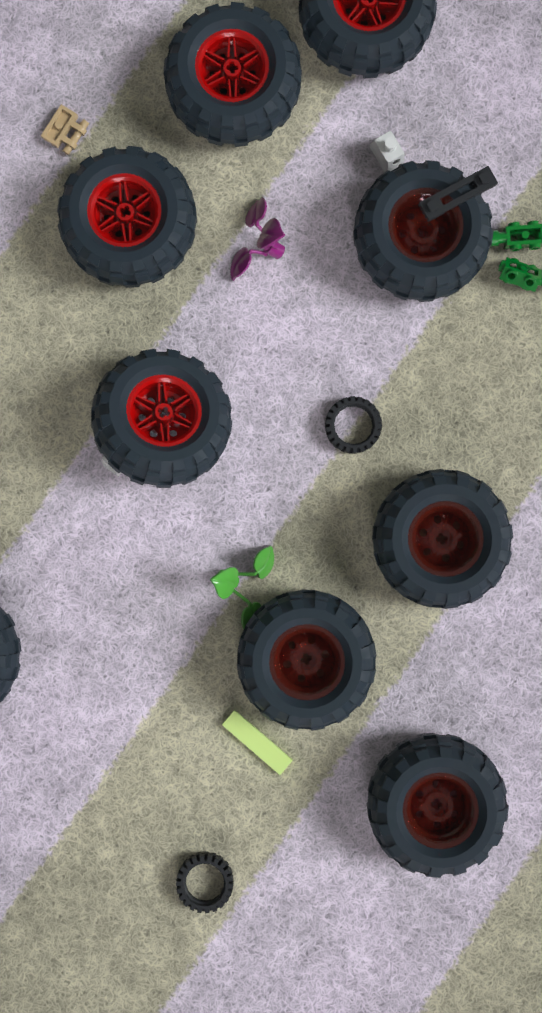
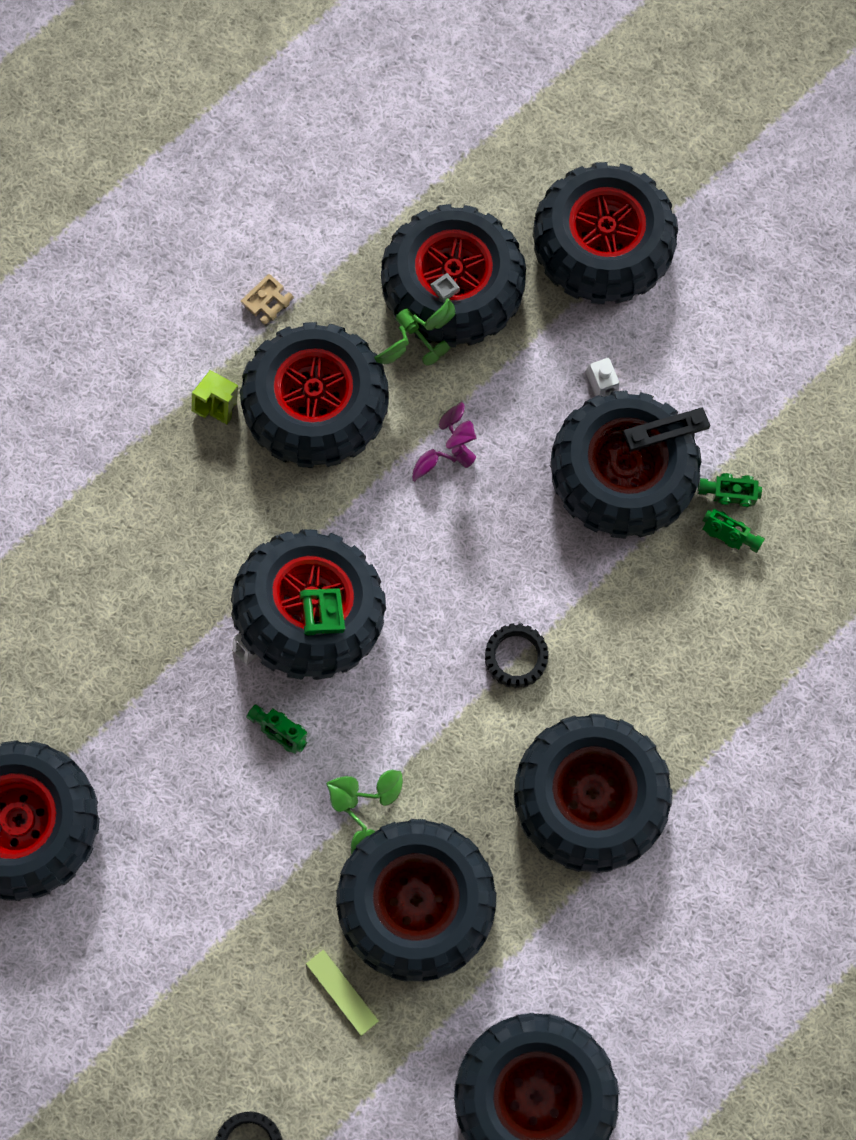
camera: 10 degrees right, 15 degrees down
(36, 234) = (215, 396): none -> lime plate
(162, 529) = (286, 729): none -> green brick
(182, 426) = (329, 611): none -> green plate
(202, 132) = (409, 323): none -> bright green plant
(228, 90) = (445, 287): none -> light grey tile

